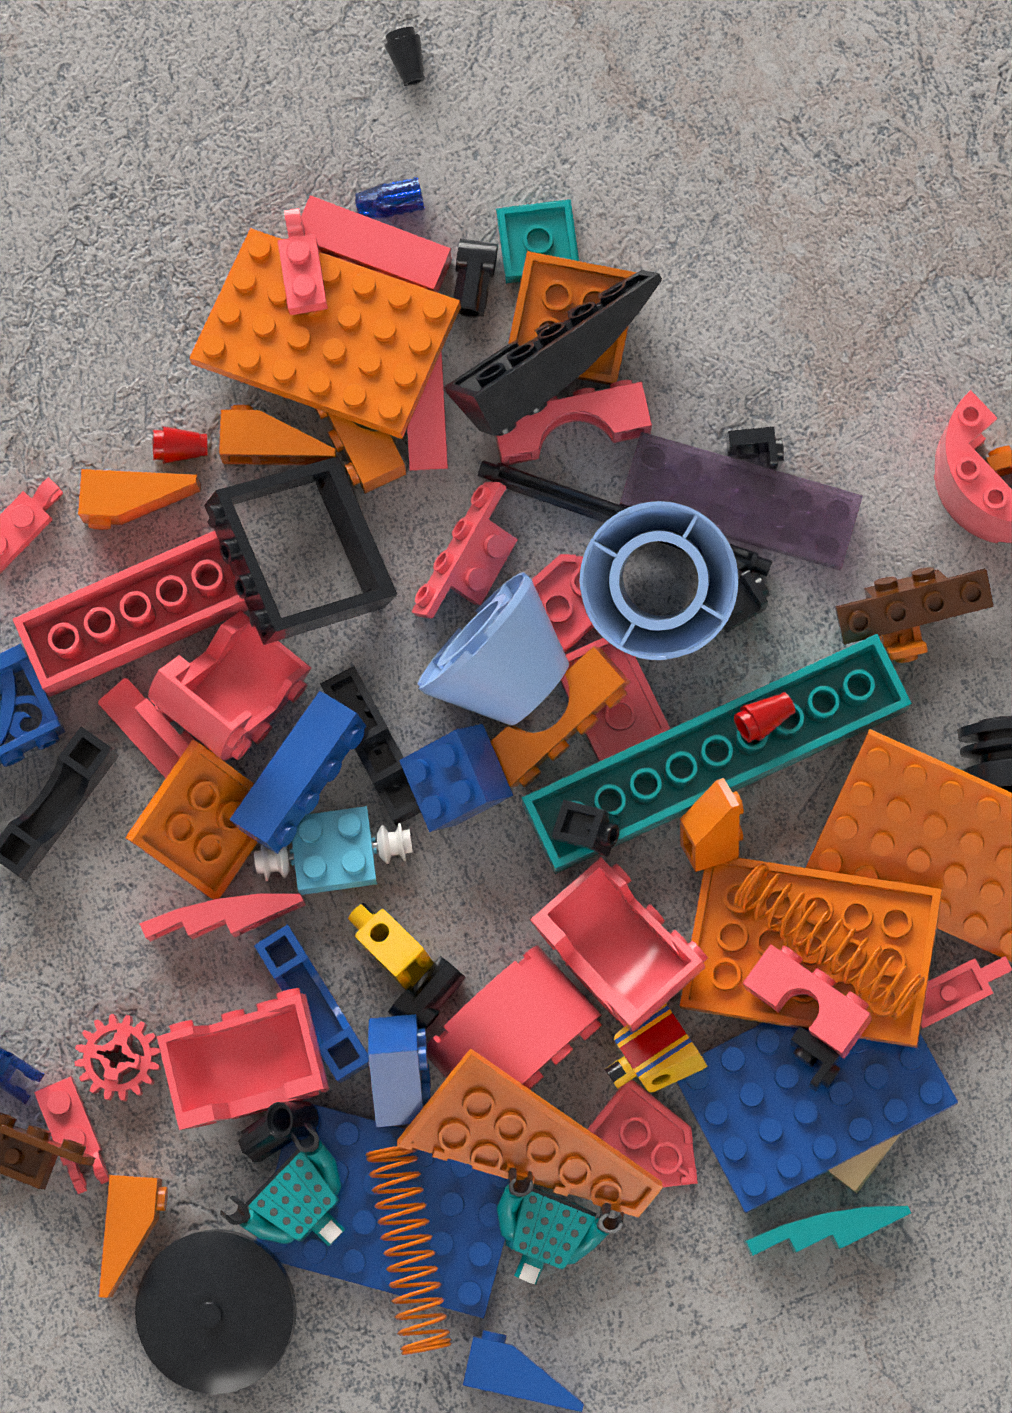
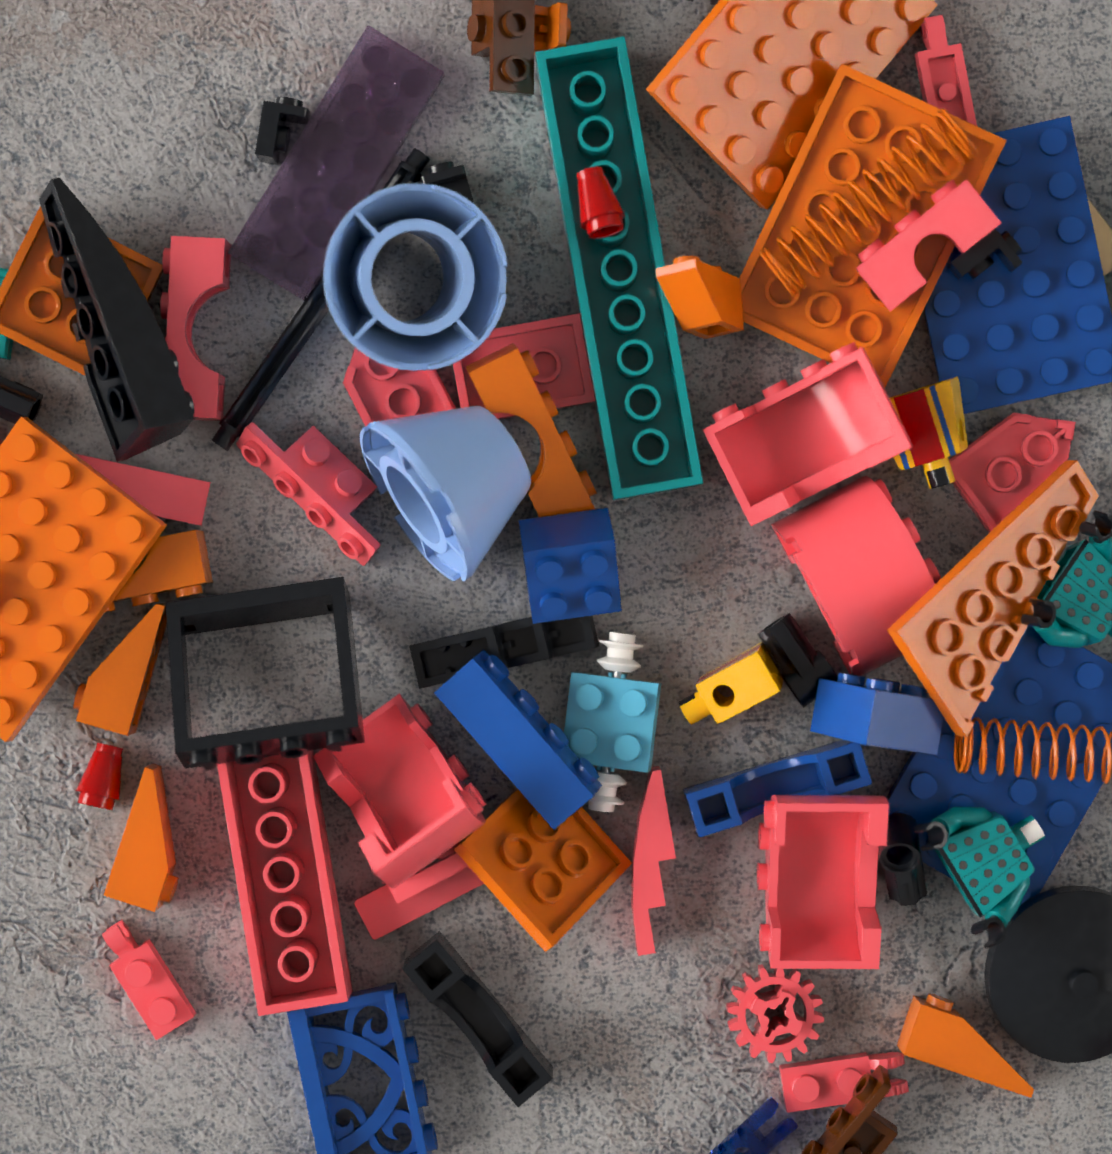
camera: 80 degrees left, 10 degrees up
(586, 827) = (670, 436): black bracket -> none

